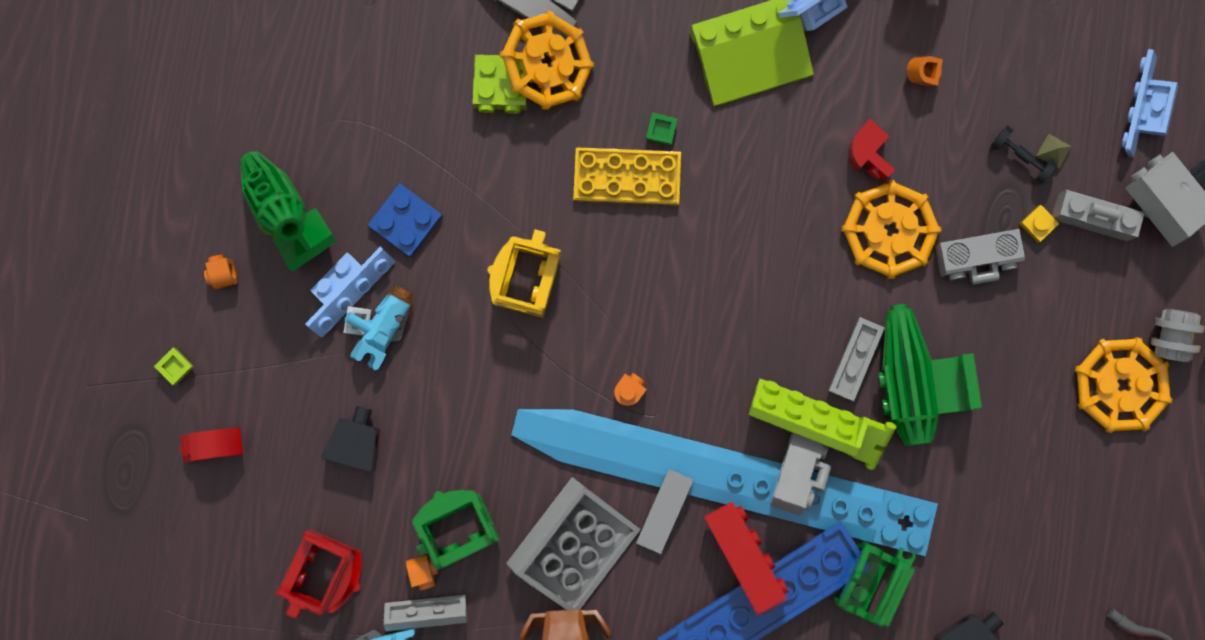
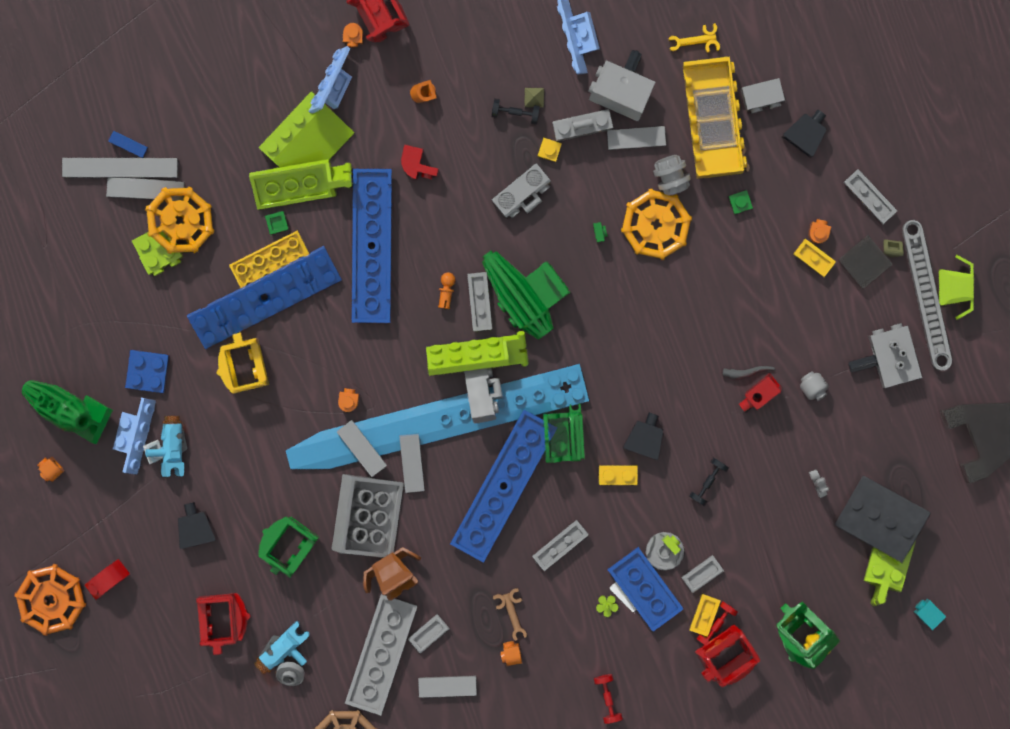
camera: 30 degrees left, 5 degrees up
(143, 435) = (60, 595): none -> orange plate
(174, 366) = (55, 544): lime plate -> none
(421, 572) = (282, 584): orange plate -> none
(425, 612) = (298, 607): light grey plate -> none
(613, 458) = (361, 448): none -> light grey tile
(626, 211) = (245, 307): none -> blue piece
(714, 94) = (299, 183): none -> lime hinge
(746, 559) = (476, 464): red brick -> none
(749, 244) = (371, 267): none -> blue piece
(830, 312) = (447, 281): none -> orange pin
(905, 223) = (464, 197): light orange plate -> none
(1049, 356) = (600, 232): none -> green plate
(1153, 267) = (636, 138): none -> light grey tile

